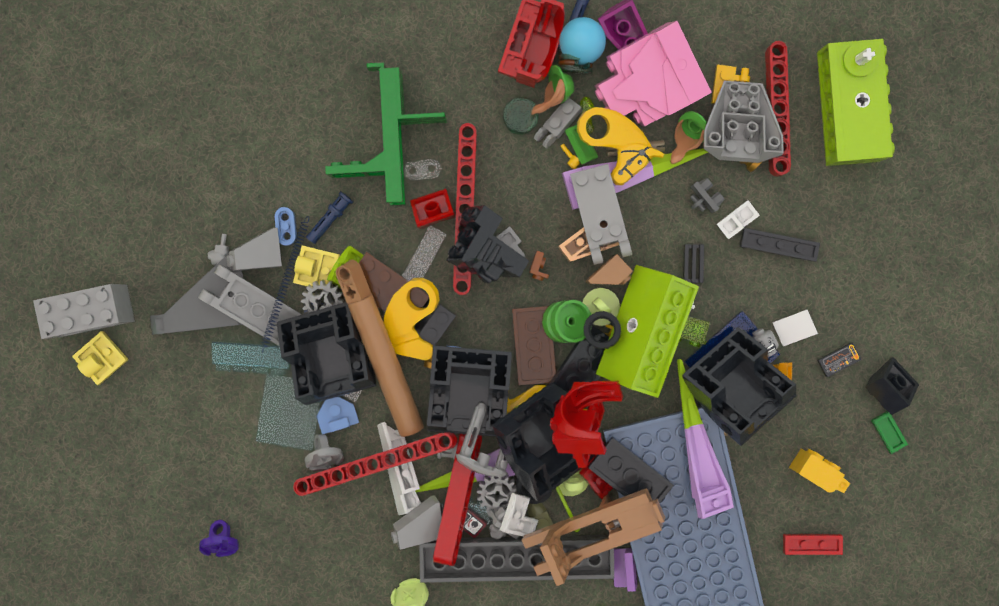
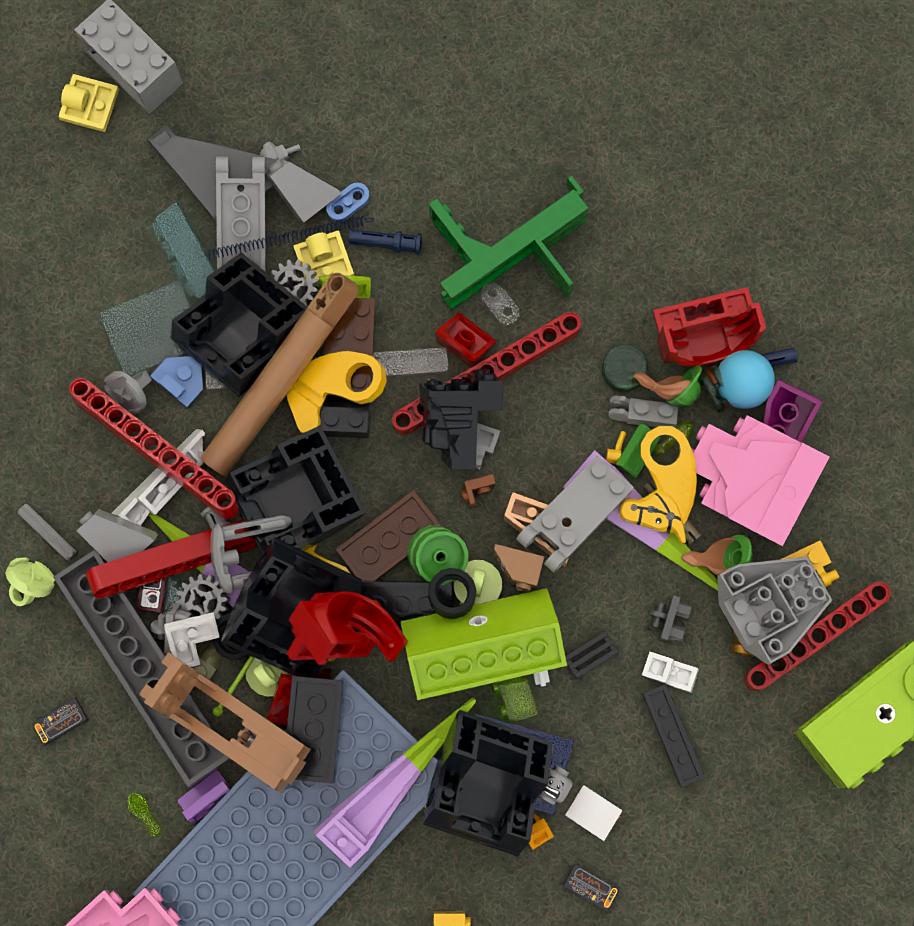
camera: 60 degrees right, 10 degrees down
(384, 565) = (47, 532): none -> light grey axle

